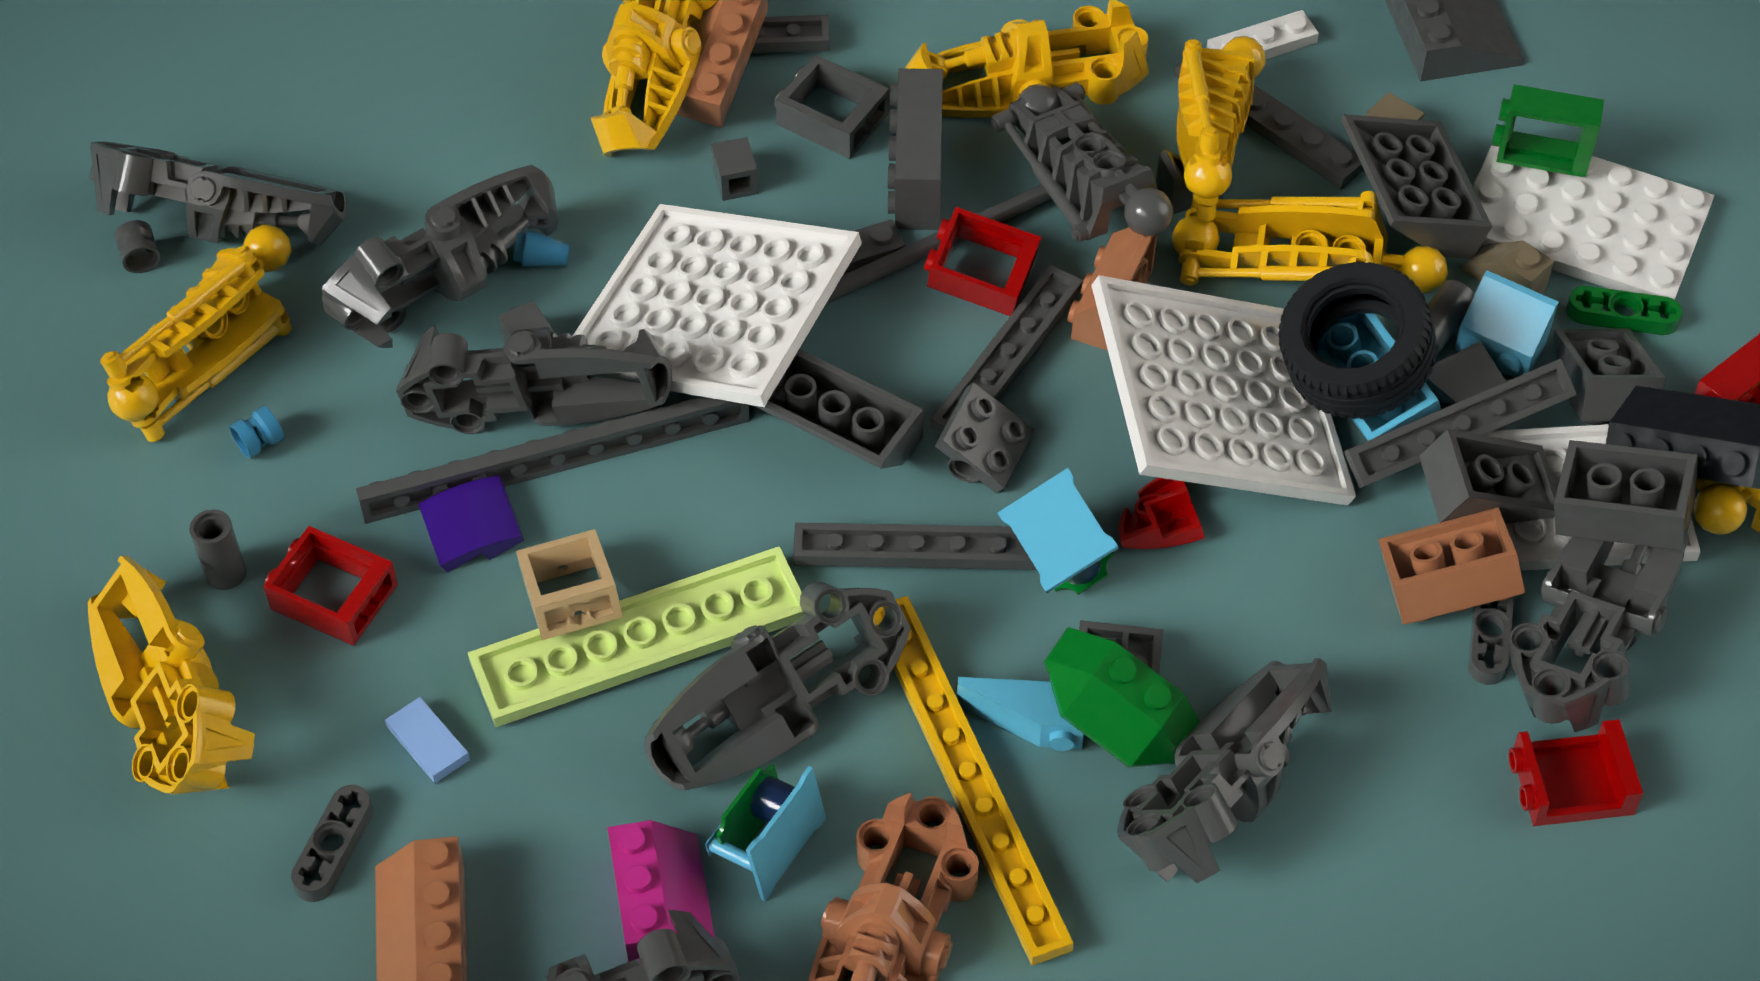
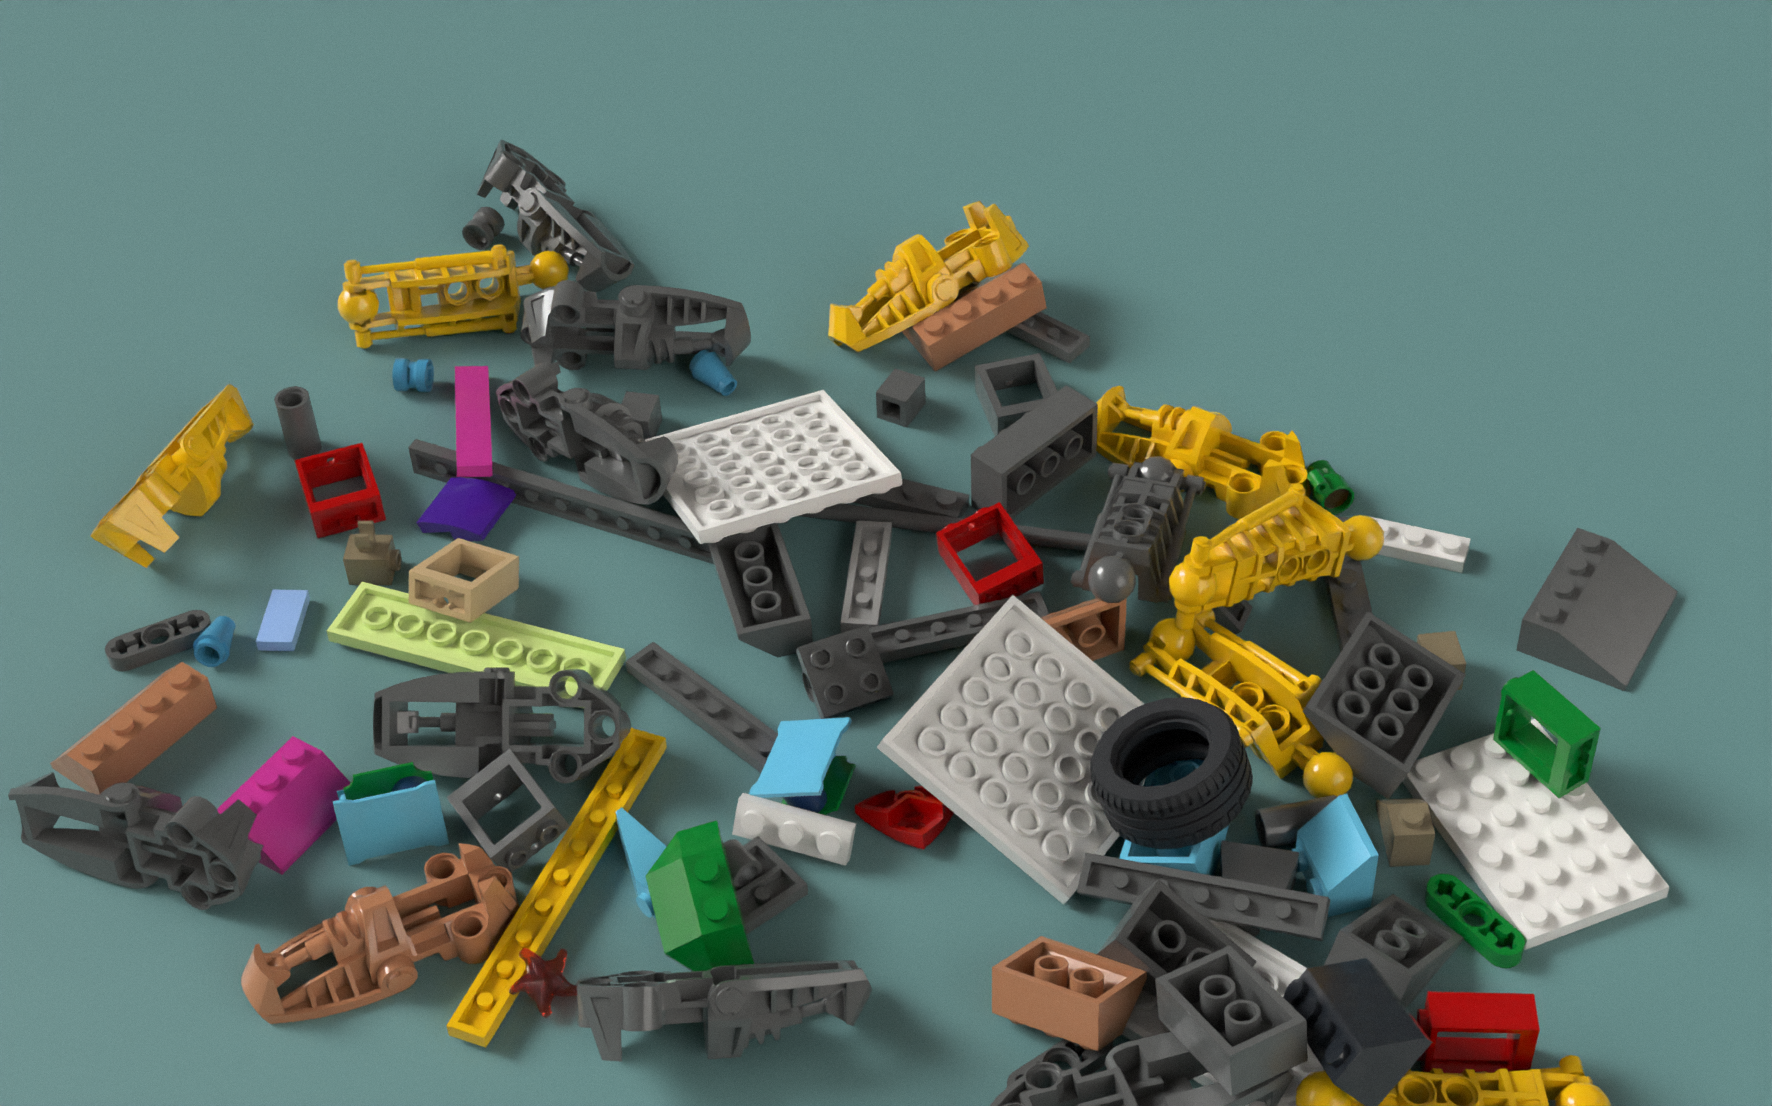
camera: 45 degrees right, 10 degrees down
(385, 436) = (473, 422): none -> dark pink tile
(396, 805) = (215, 642): none -> dark azure cone
(446, 625) = (371, 557): none -> dark tan brick
(824, 739) = (488, 790): none -> dark grey window
(895, 346) = (866, 575): none -> light grey plate
(1058, 862) = (543, 980): none -> clear red animal
(1101, 593) = (794, 829): none -> white plate
(1163, 33) = (1329, 487): none -> green piece

